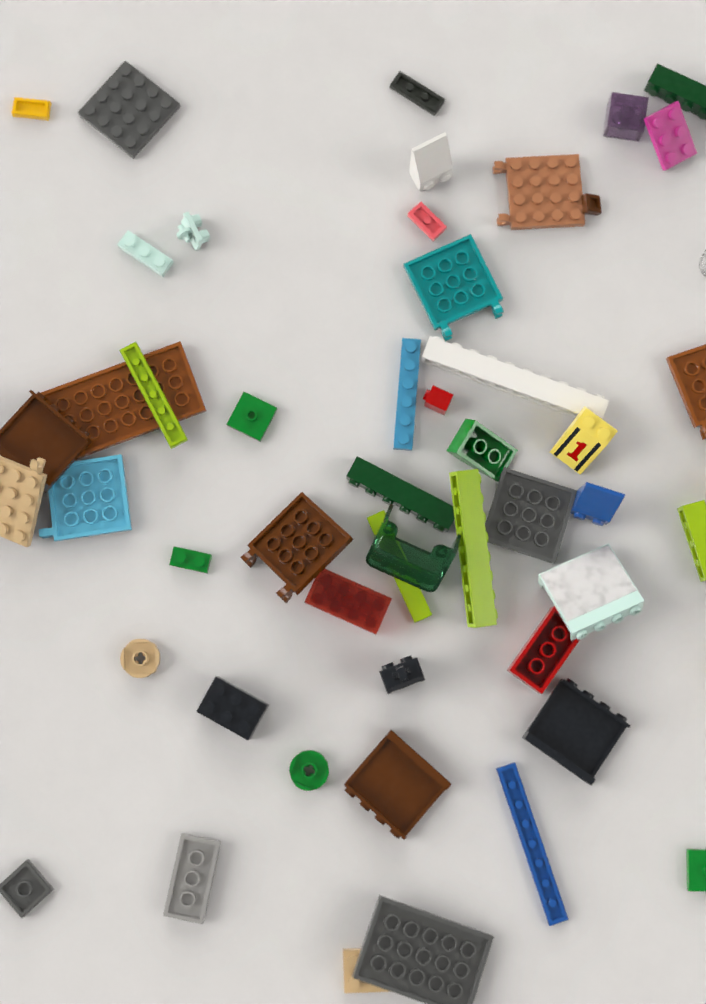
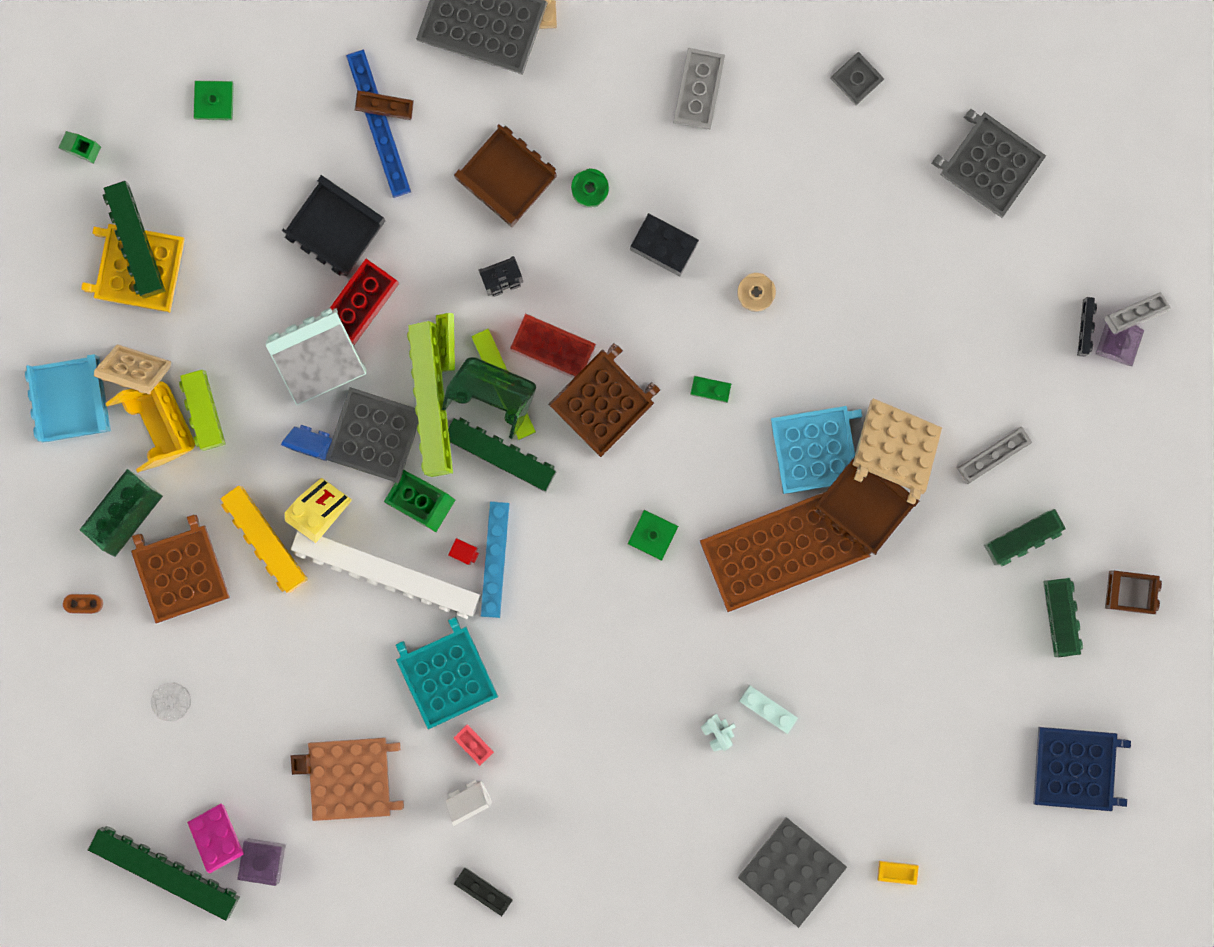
camera: 175 degrees right, 5 degrees up
(153, 395) = (752, 554): lime tile -> none
(457, 611) = (446, 340): none -> lime plate
(526, 862) = (384, 105): none -> reddish brown tile
(635, 413) = (264, 539): none -> yellow brick

